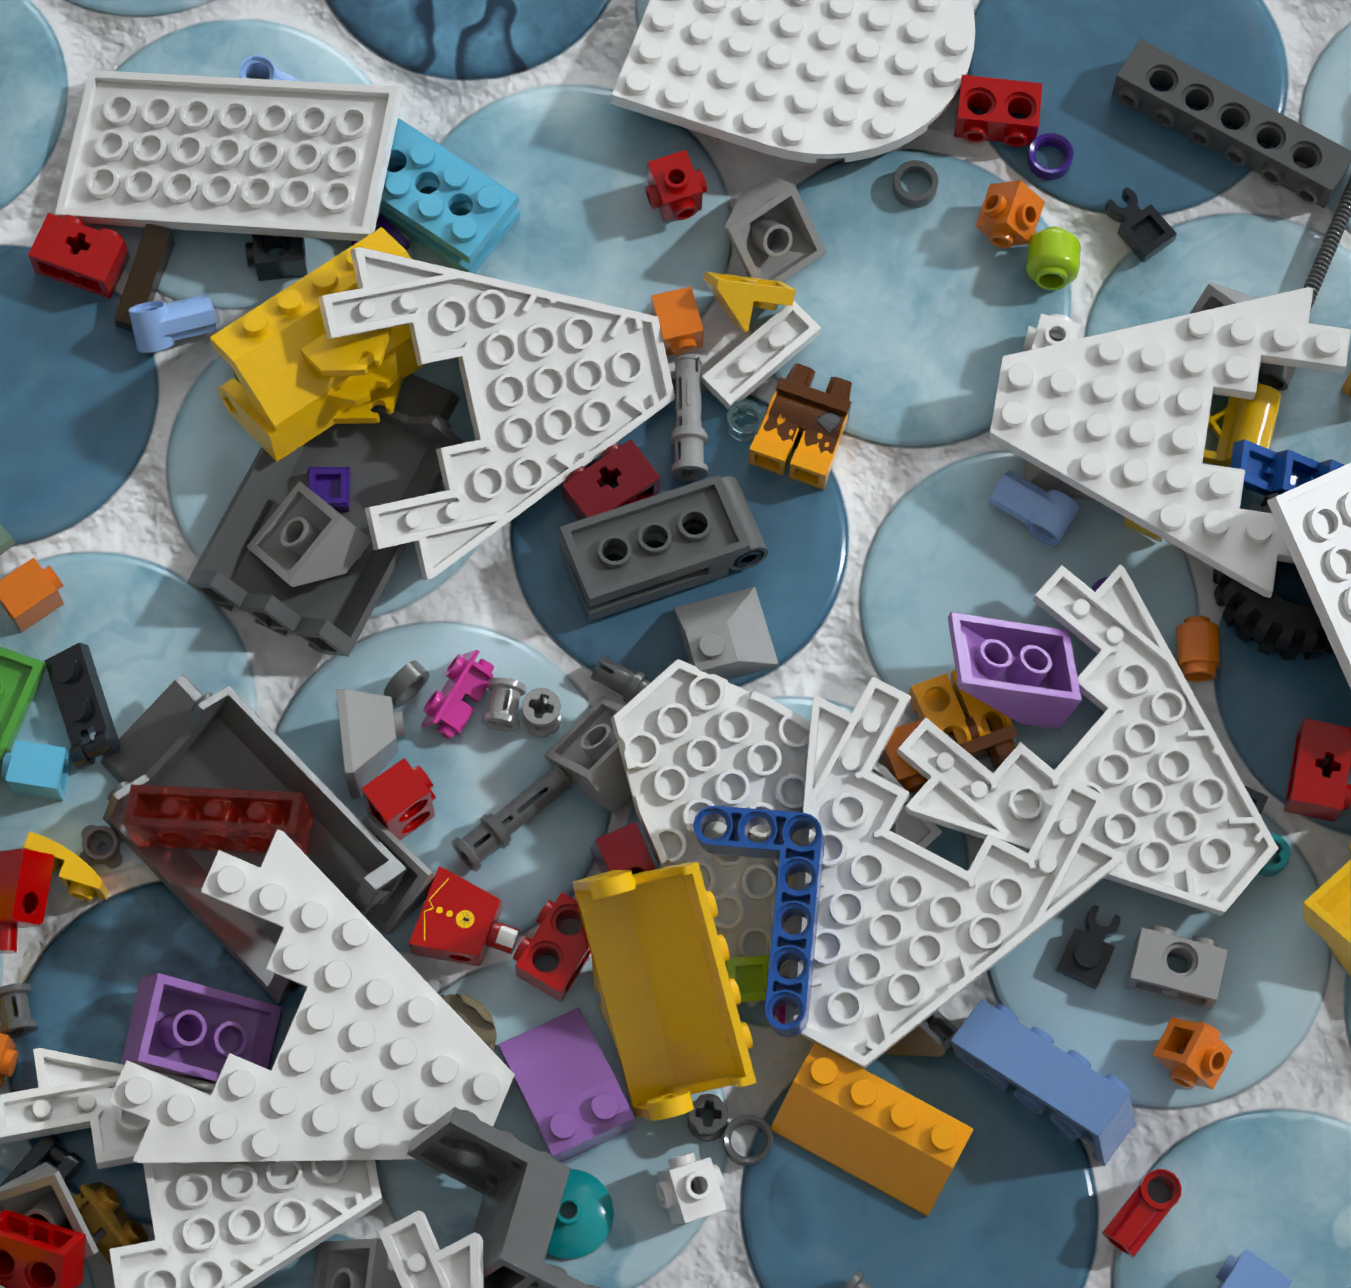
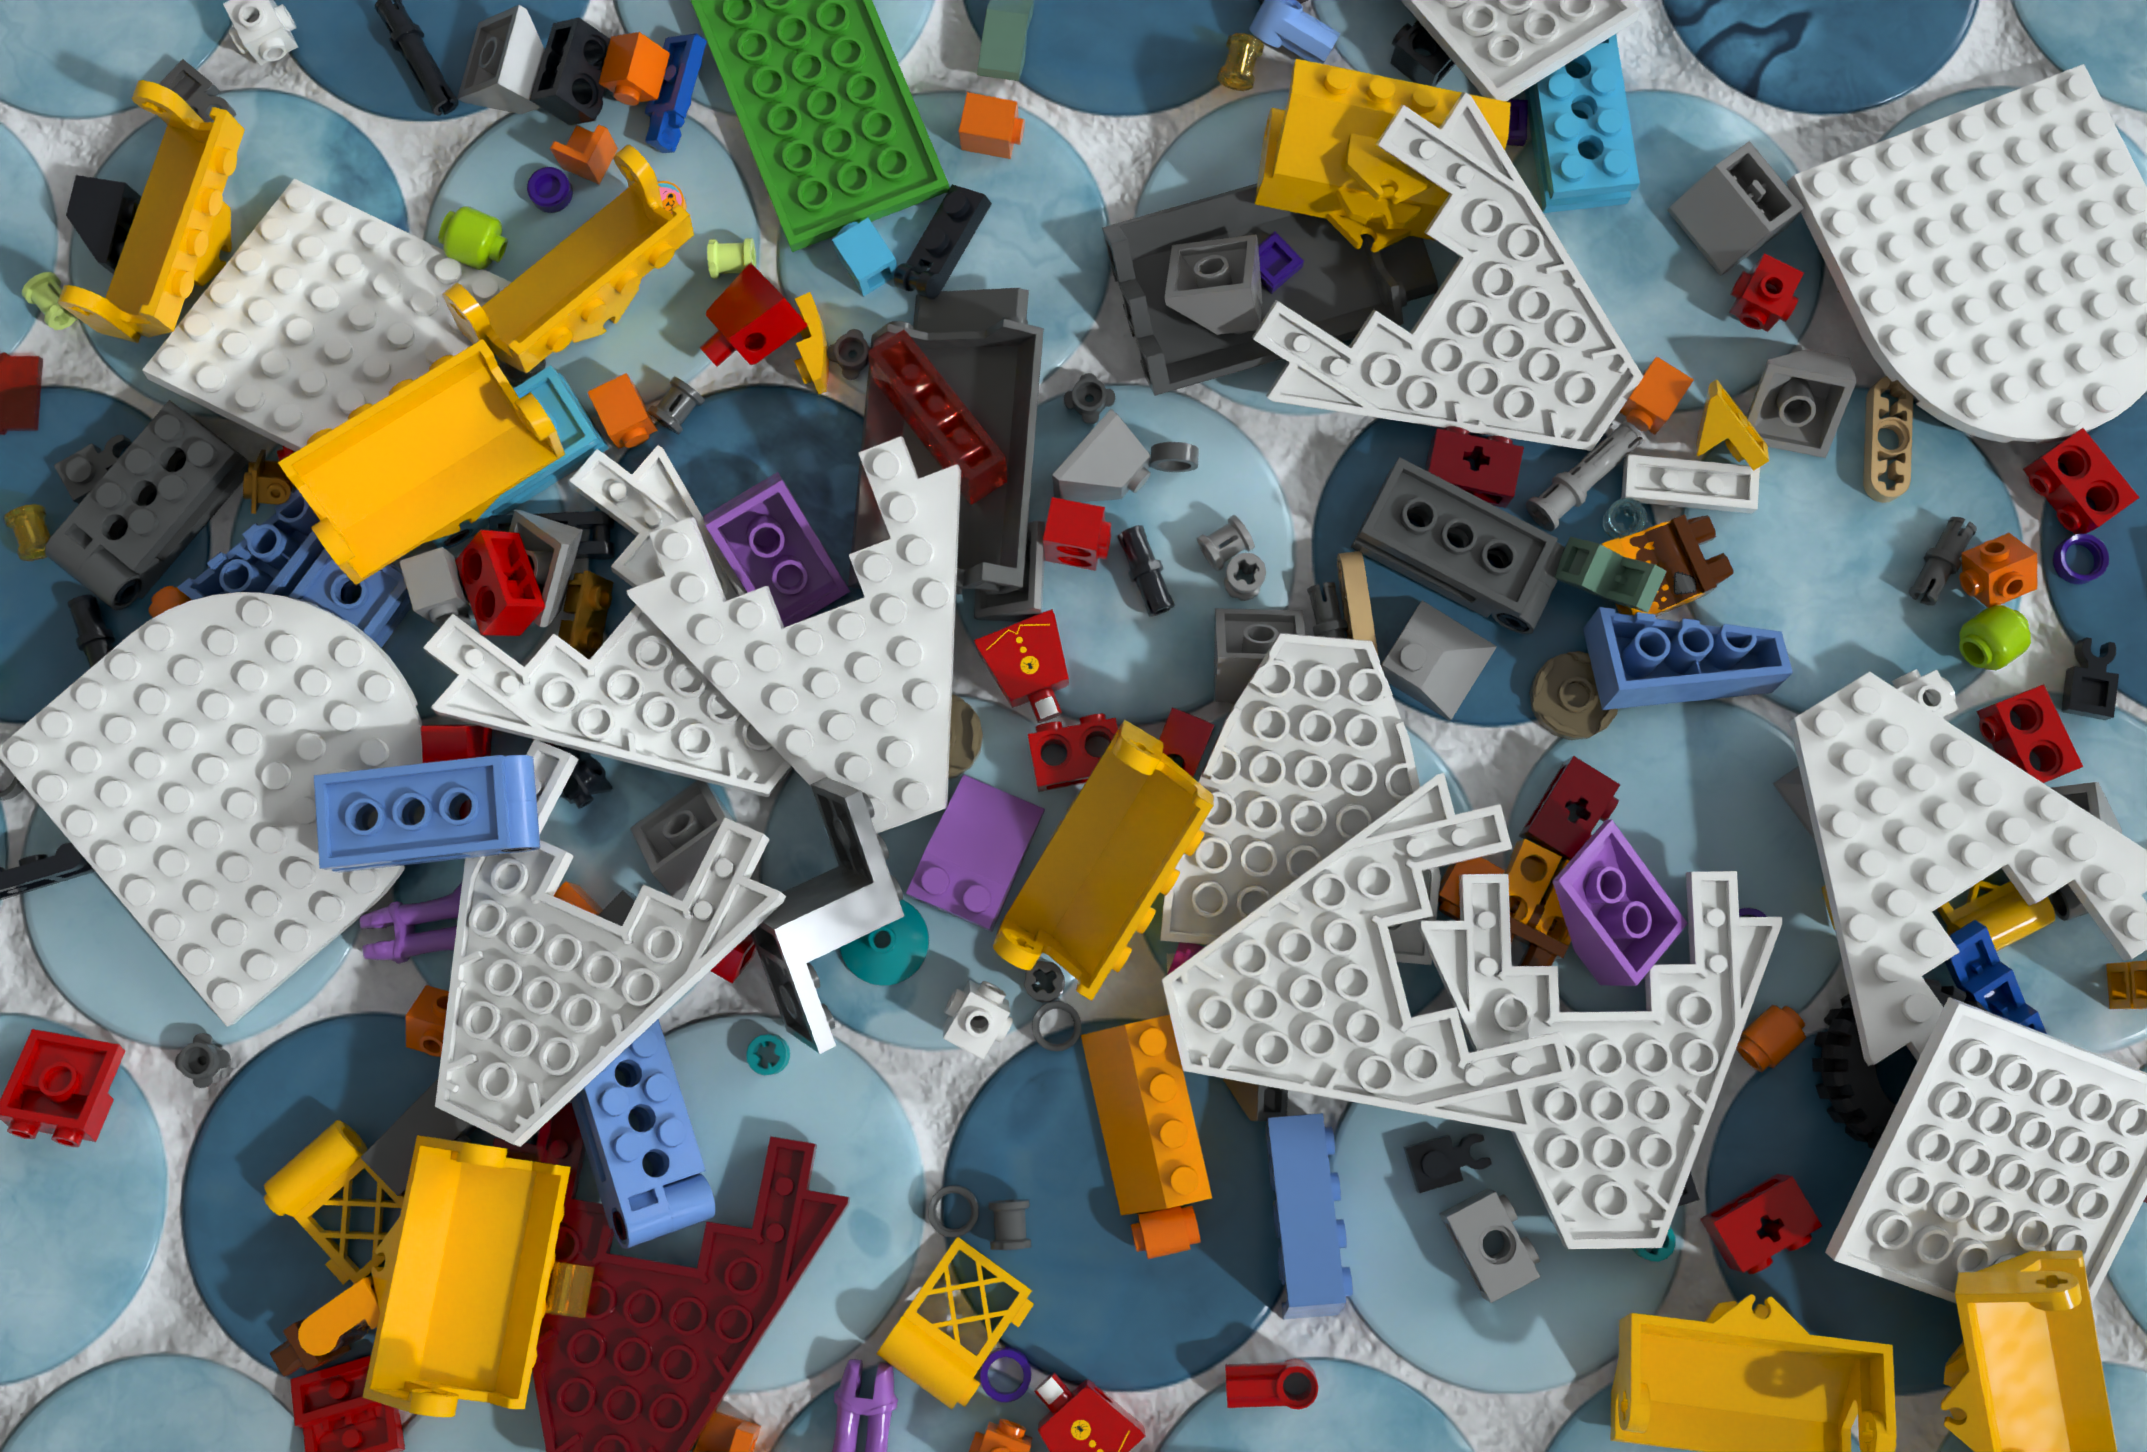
camera: 55 degrees right, 10 degrees up
(168, 388) = (1240, 62): none -> clear yellow bush
(300, 694) = (1090, 386): none -> dark grey plate
(447, 707) = (1185, 503): dark pink hinge -> none
(470, 778) = (1145, 570): none -> black pin
(491, 825) = (1199, 634): dark grey pin -> none
(596, 152) = (1735, 208): none -> light grey slope
(627, 648) = (1355, 596): none -> tan beam
(750, 976) = (1176, 919): lime plate -> none
(776, 463) = (1609, 574): none -> sand green slope
(787, 900) = (1254, 898): blue beam -> none
(839, 565) = (1567, 698): none -> dark tan tile
(851, 184) = (1873, 451): none -> tan beam
(878, 476) = (1673, 662): none -> medium blue wedge
(912, 200) = (1934, 483): dark grey piece -> none
(912, 616) = (1577, 785): none -> dark red brick
(968, 1190) = (1165, 1231): none -> orange brick
(969, 243) = (1942, 560): none -> dark grey pin
(1043, 512) = (1769, 816): light blue piece -> none
(1146, 289) = (2039, 732): none -> red brick
(1192, 1053) = (1430, 1318): orange brick -> none

